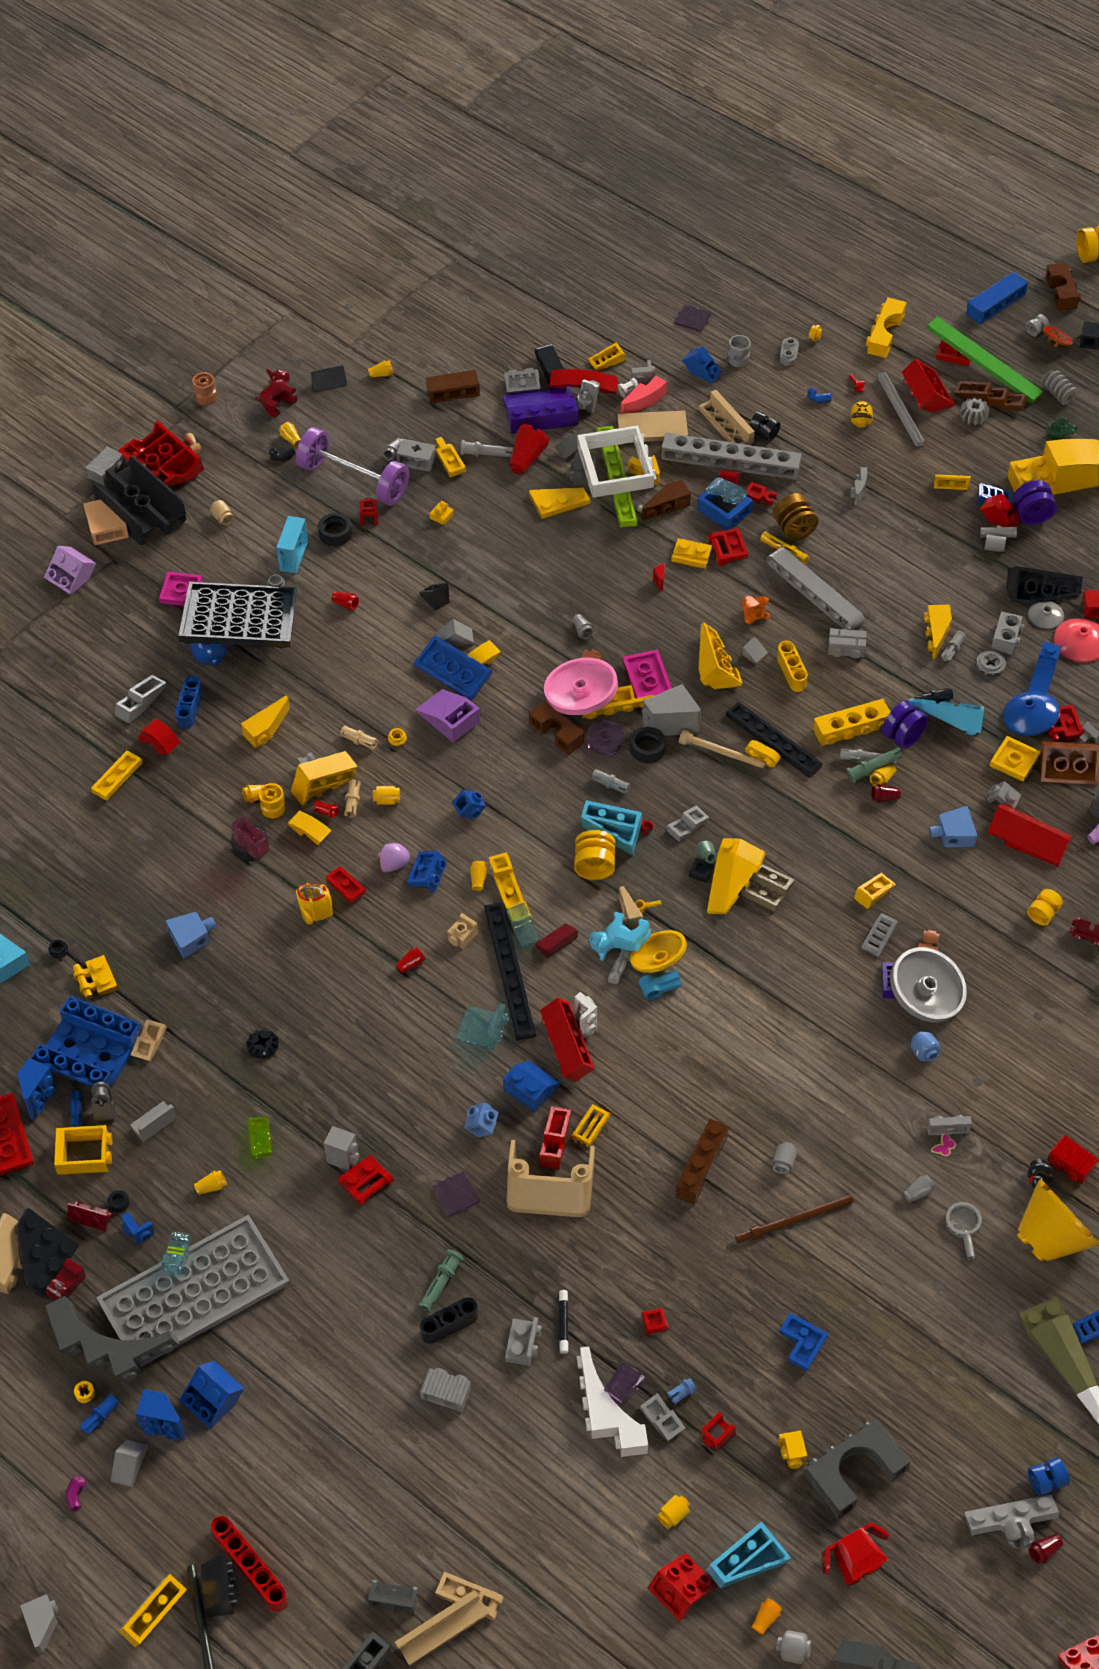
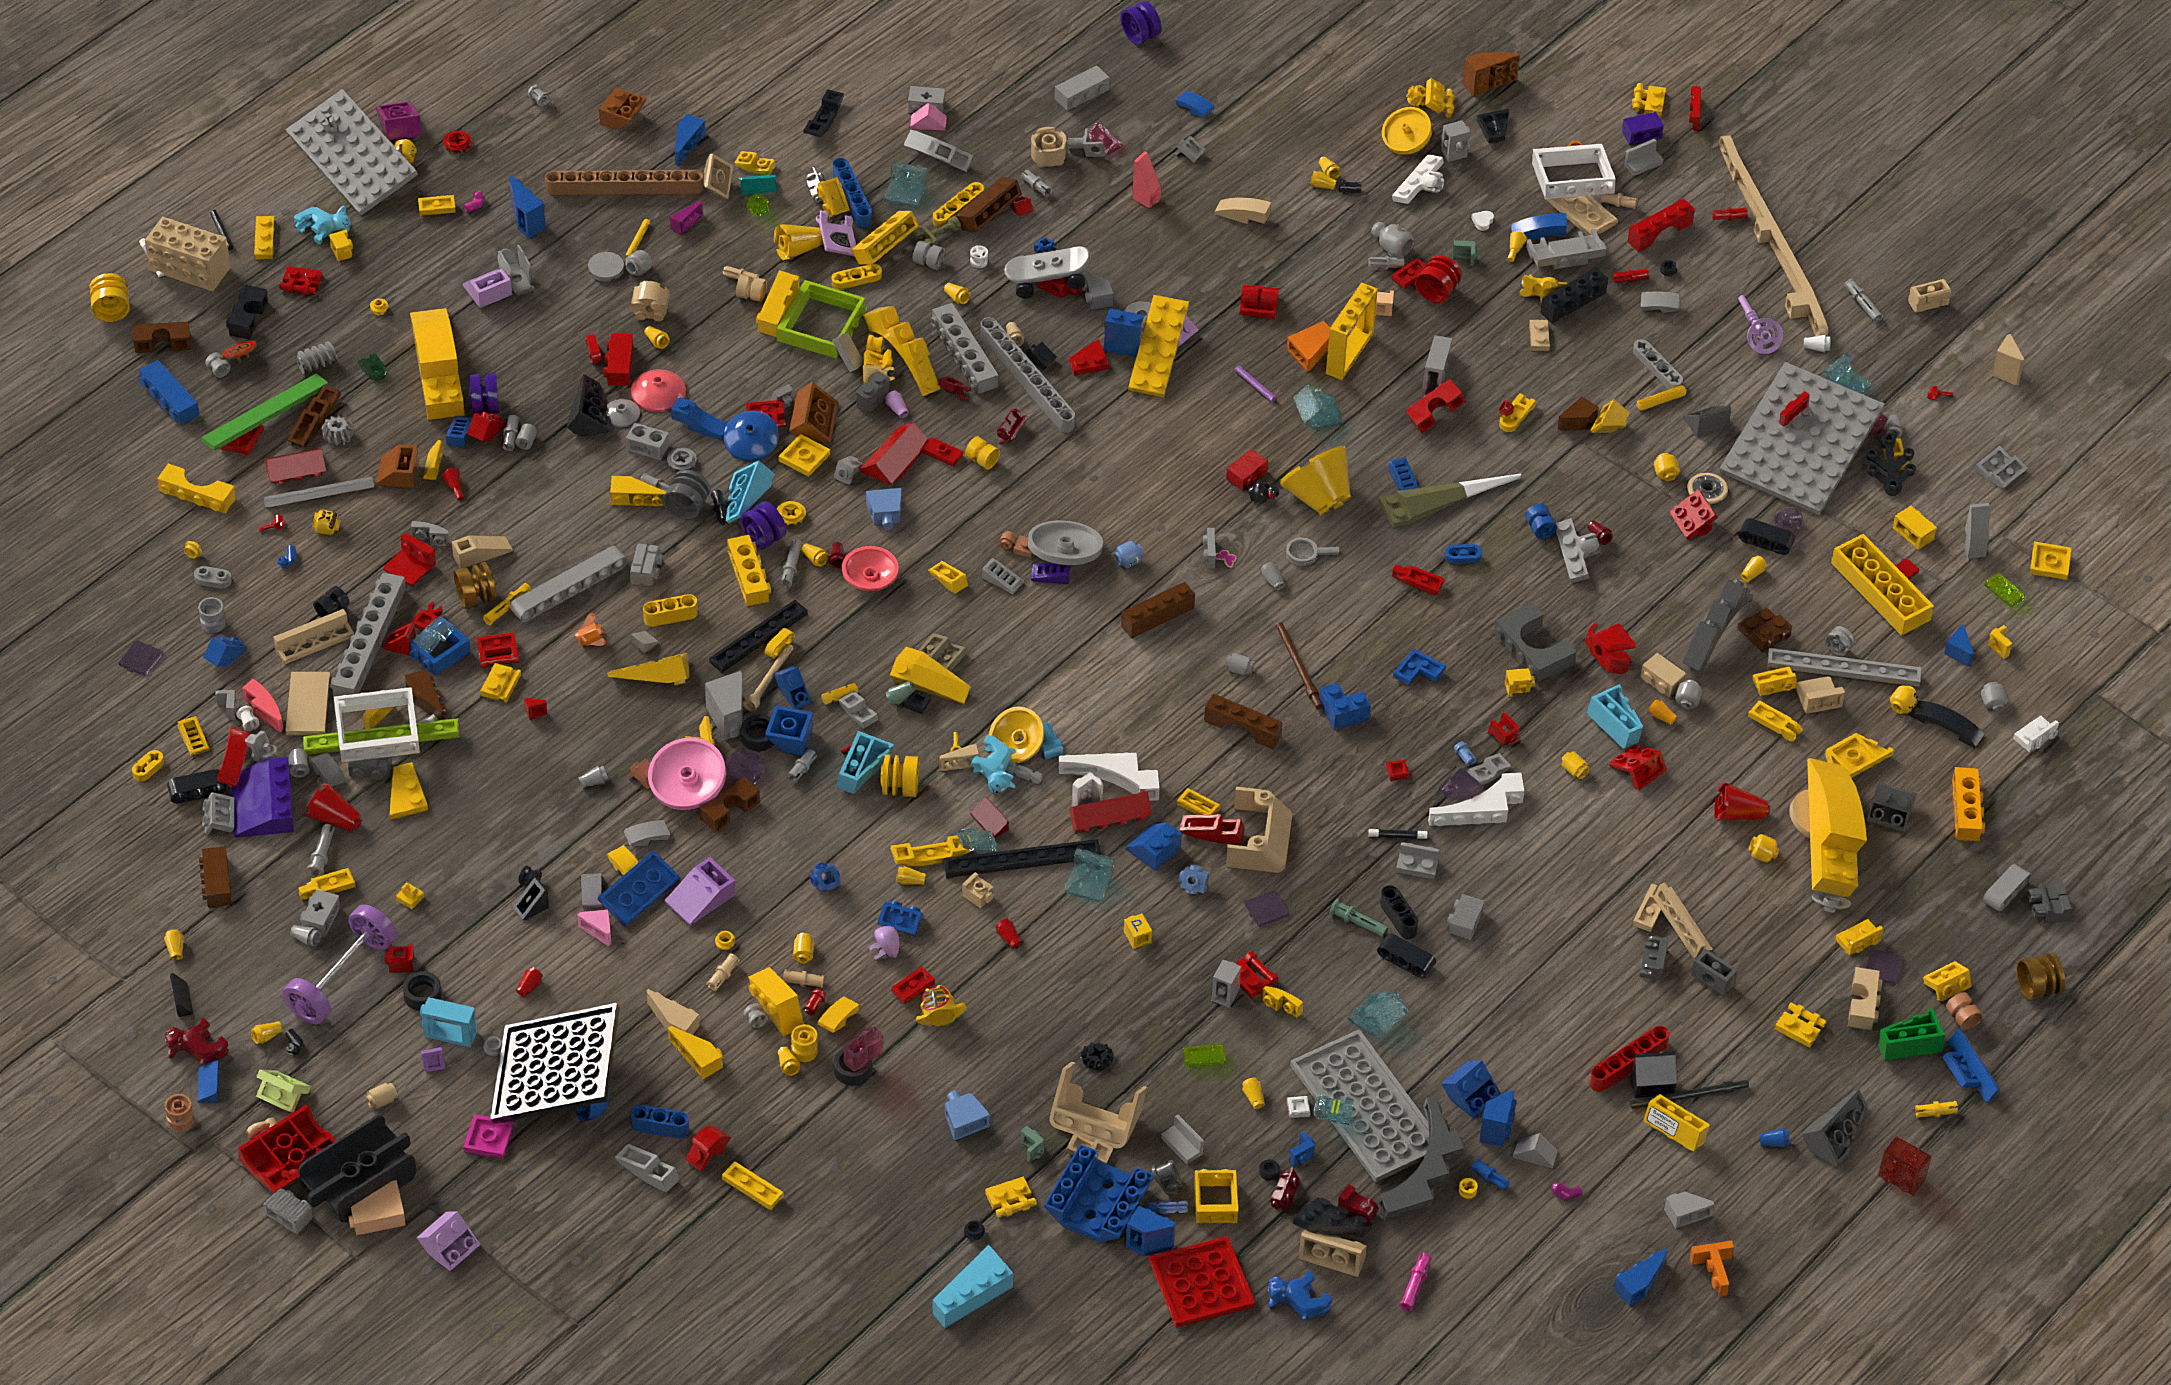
camera: 90 degrees left, 5 degrees down
(155, 991) = (1033, 1142): none -> sand green bracket
(186, 1035) = (1089, 1121): none -> tan windscreen
(197, 1226) = (1298, 1107): none -> white tile
(230, 447) = (281, 1089): none -> yellowish green bracket
(240, 408) = (209, 1082): none -> blue slope
(260, 542) = (433, 1059): none -> medium lavender tile
(304, 703) = (672, 1013): none -> tan slope
(310, 1299) = (1378, 1013): none -> clear light blue slope
(329, 1200) = (1278, 998): none -> yellow slope
(390, 1328) = (1406, 956): none -> black beam
(408, 643) = (596, 924): none -> bright pink slope
(416, 1071) = (1137, 931): none -> yellow brick
(462, 590) = (527, 875): none -> black wheel
(520, 670) = (642, 833): none -> light grey slope
(573, 334) = (149, 766): none -> yellow beam
(579, 423) = (298, 763): none -> light grey brick
(626, 1050) = (1114, 768): none -> white arch
(646, 674) = (667, 726): dark pink plate -> none
(647, 764) = (790, 729): none -> blue slope
(706, 807) = (839, 693): none -> yellow axle
(707, 766) = (793, 687): none -> blue slope
(730, 1259) = (1343, 709): none -> blue brick
(823, 476) = (412, 561): none -> red bracket
(823, 1617) = (1662, 675): none -> tan brick
(845, 520) = (477, 549): none -> tan slope
(850, 1076) = (1157, 610): none -> reddish brown brick
(865, 809) = (870, 568): none -> coral dish
(866, 768) = (808, 564): sand green pin -> none
(930, 496) = (452, 478): none -> red cone
(932, 748) = (792, 507): none -> yellow gear
(935, 458) = (399, 467): none -> dark orange slope
(936, 662) = (686, 494): none -> dark grey wheel
(937, 1342) = (1419, 578): none -> red hinge
(985, 1391) = (1463, 553): none -> blue plate
(1046, 875) = (942, 451): none -> red plate

